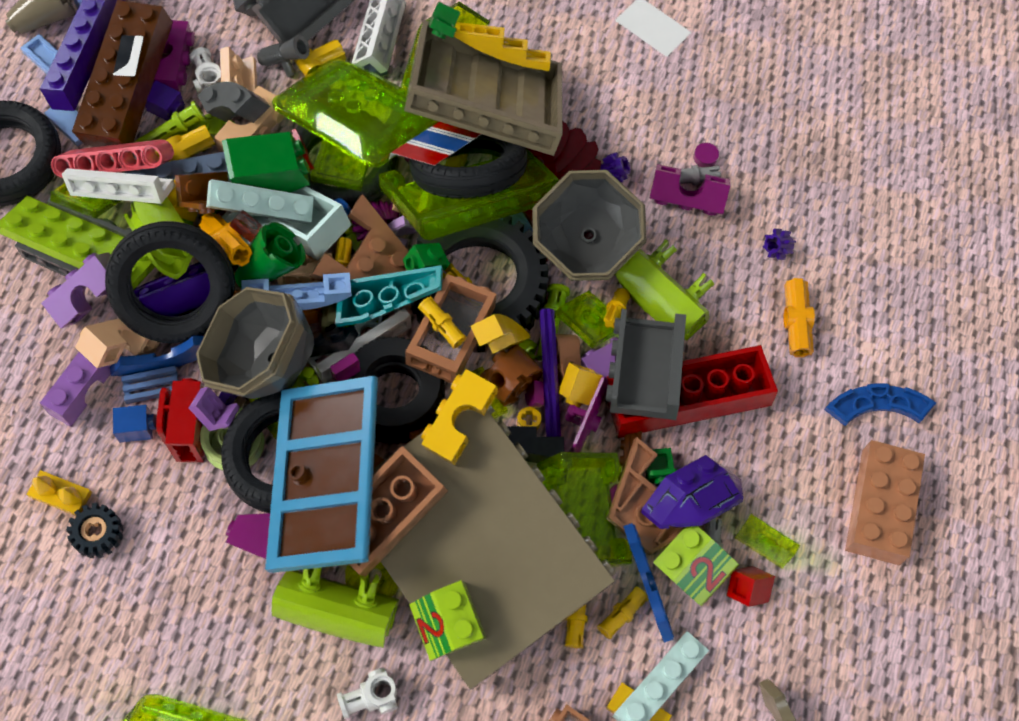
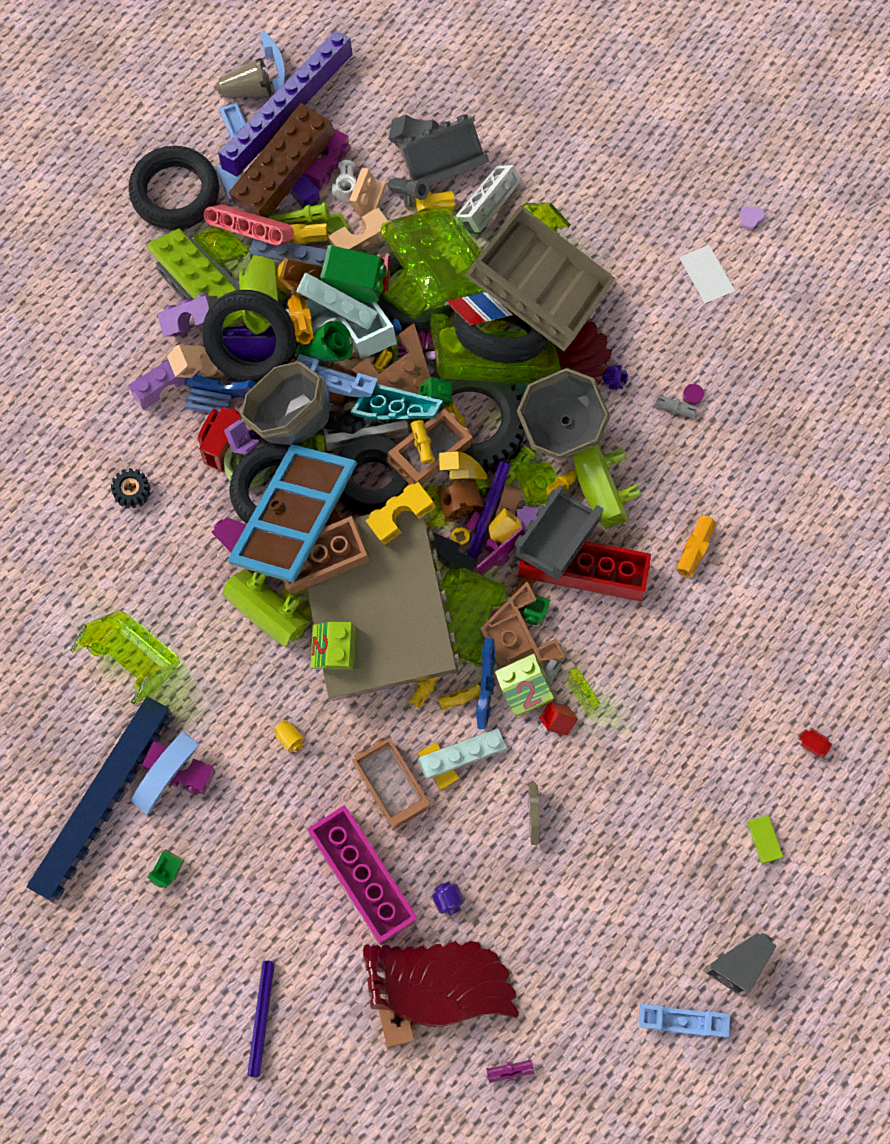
camera: 25 degrees right, 5 degrees up
(58, 493) = (117, 452): yellow tile -> none
(117, 185) = (243, 248): white fence -> none
(128, 55) = (290, 151): sticker -> none
(133, 423) = (185, 424): blue brick -> none
(232, 100) = (352, 213): dark grey brick -> none
(246, 225) = (318, 316): clear red tile -> none
(345, 368) = (342, 447): magenta tile -> none
(366, 698) = (261, 674): white connector -> none
(444, 20) = (533, 213): green bracket -> none
(492, 42) = (565, 244): yellow slope -> none
(694, 495) = (548, 637): dark purple wedge -> none
(709, 197) = (647, 409): magenta arch -> none
(779, 244) = (710, 485): dark purple gear -> none
(879, 398) = (724, 629): blue tile -> none
(885, 503) = (685, 703): nougat brick -> none

